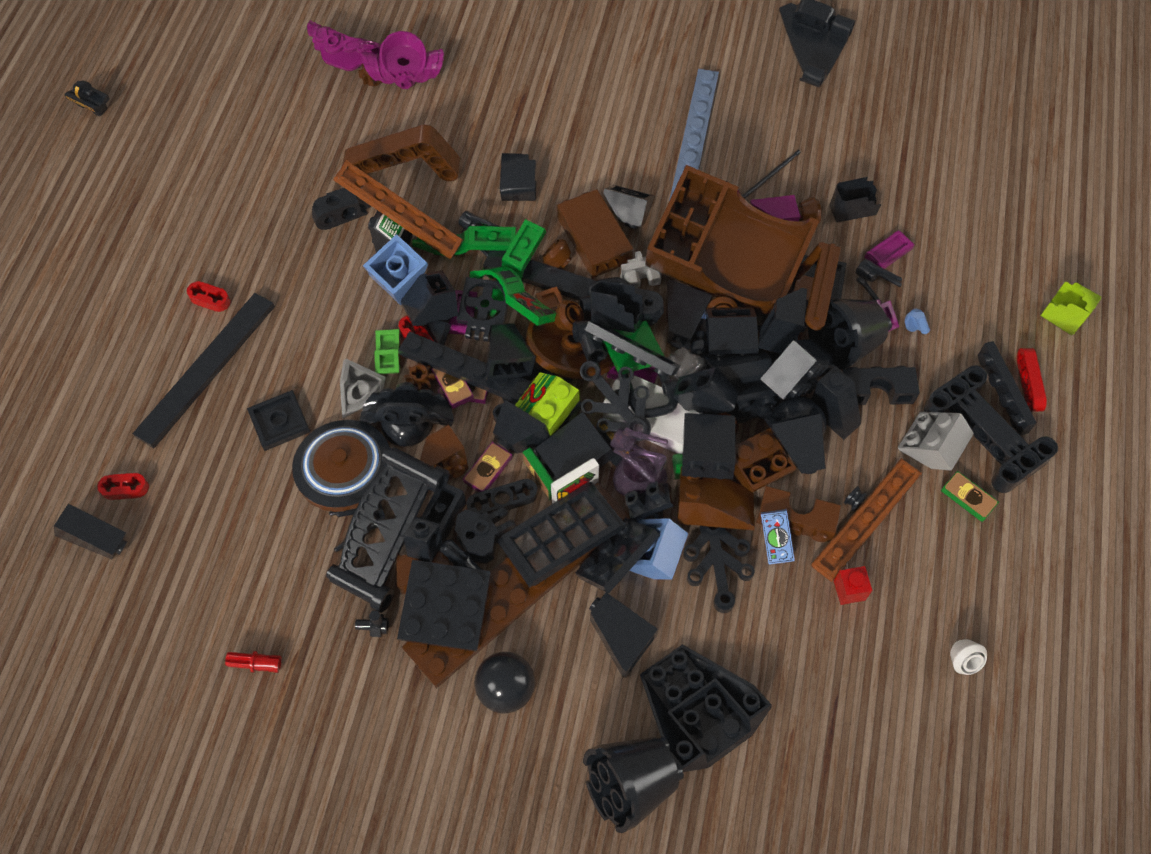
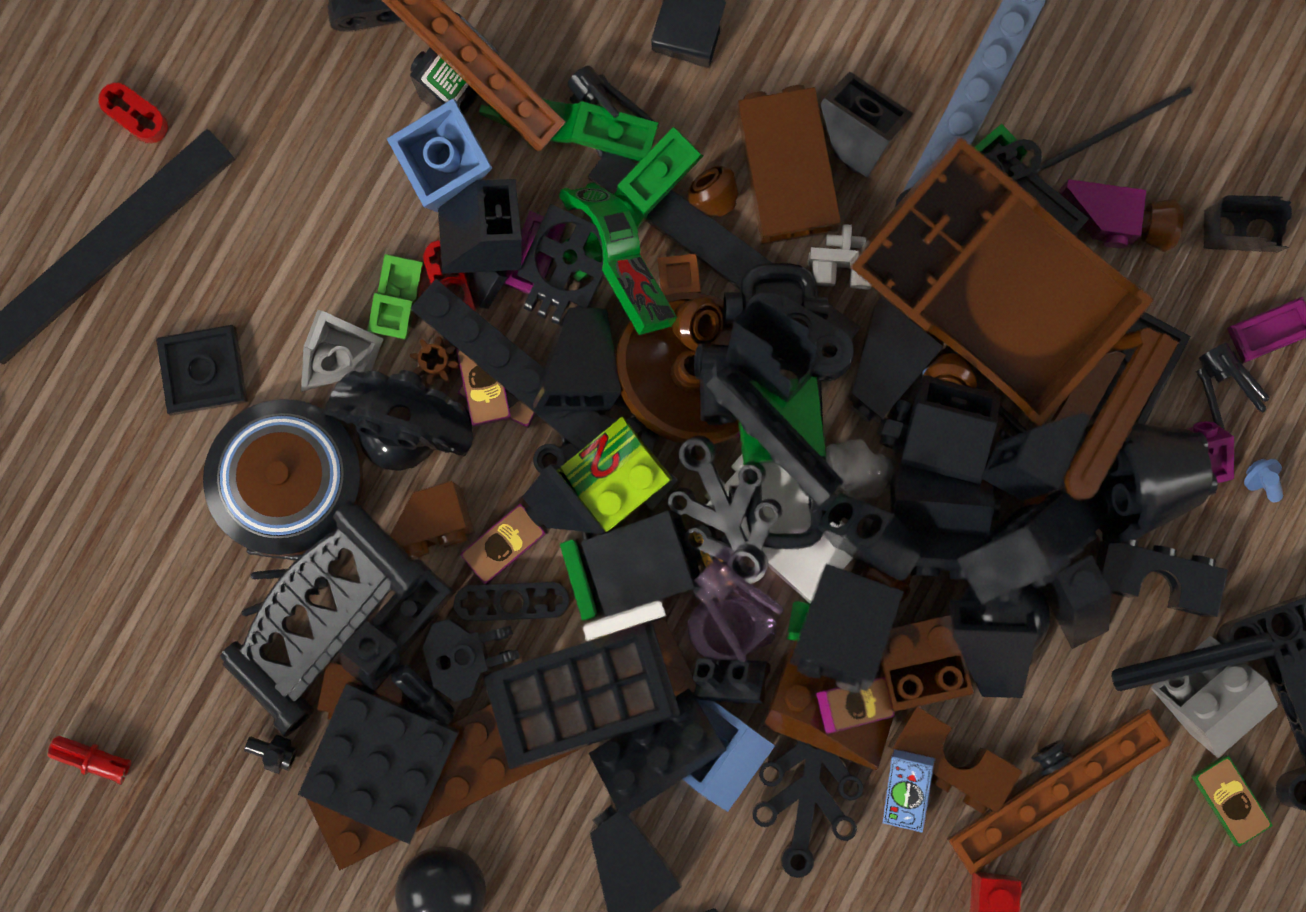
camera: 20 degrees right, 20 degrees up
(728, 491) = (849, 709): none -> tile
(915, 421) = (1193, 662): none -> black axle

